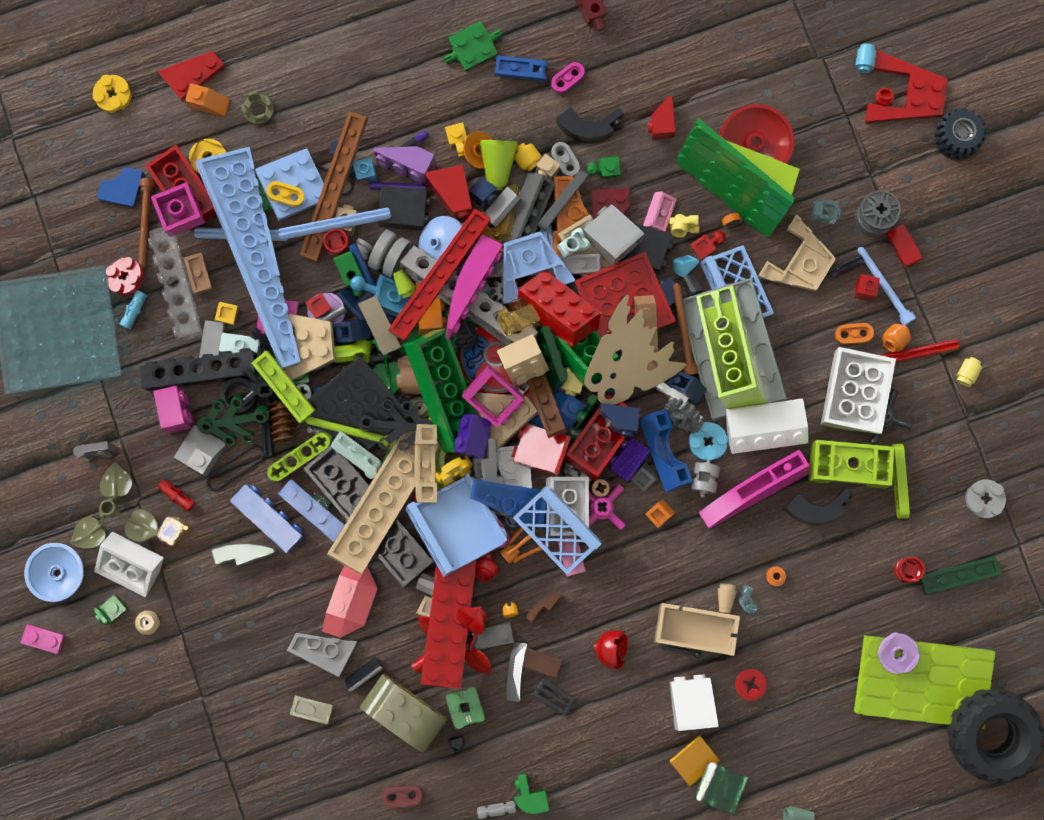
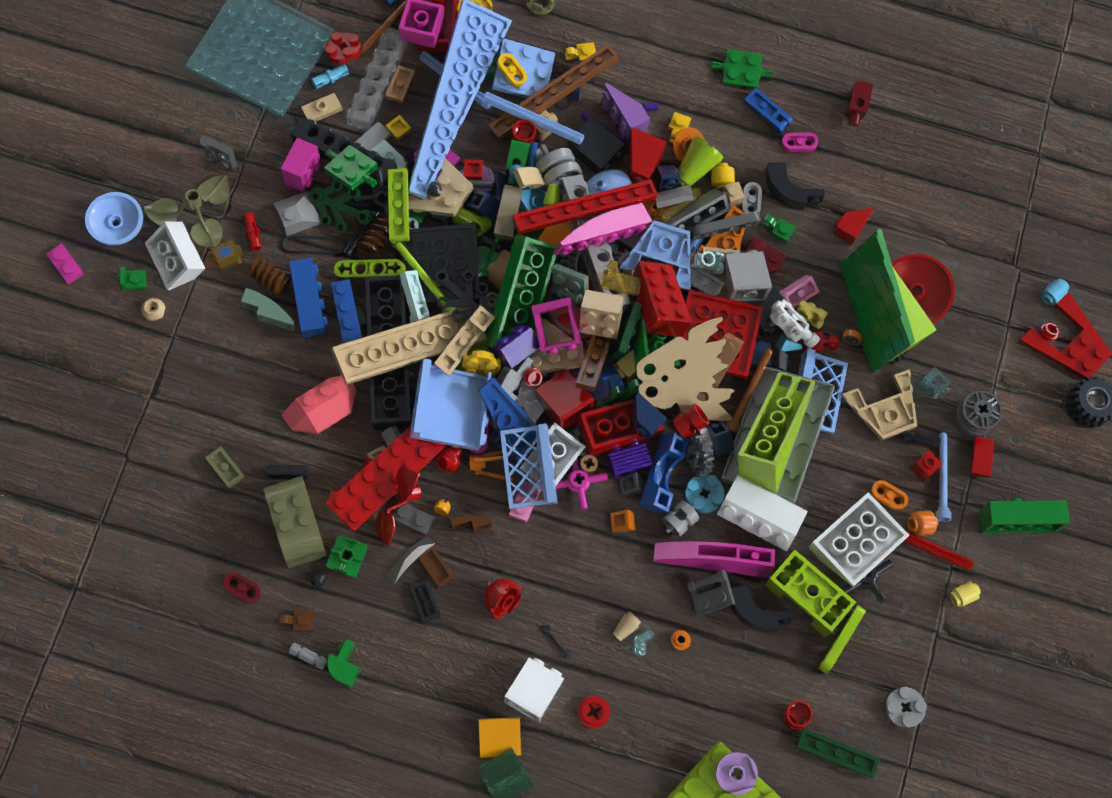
camera: 25 degrees right, 10 degrees down
(148, 343) = (322, 108): none -> tan plate
(218, 382) = (351, 167): none -> green plate
(221, 524) = (268, 277): none -> reddish brown piece
(302, 351) = (433, 189): none -> black hinge
(322, 652) = (269, 430): light grey wing -> none
(329, 128) = (581, 52): none -> yellow plate
(365, 169) = (589, 97): dark azure bracket -> none
(373, 282) = (529, 177): none -> tan slope
(468, 786) = (301, 620): none -> reddish brown plate
(477, 352) = (570, 280): none -> sand green plate
(504, 451) = (532, 377): none -> red plate
(657, 393) = (688, 422): none -> red wheel
(679, 247) = (788, 323): none -> white brick
(697, 629) = (582, 631): tan piece -> none
(778, 526) = (713, 599): none -> dark grey plate
(972, 274) = (1023, 516): none -> green brick

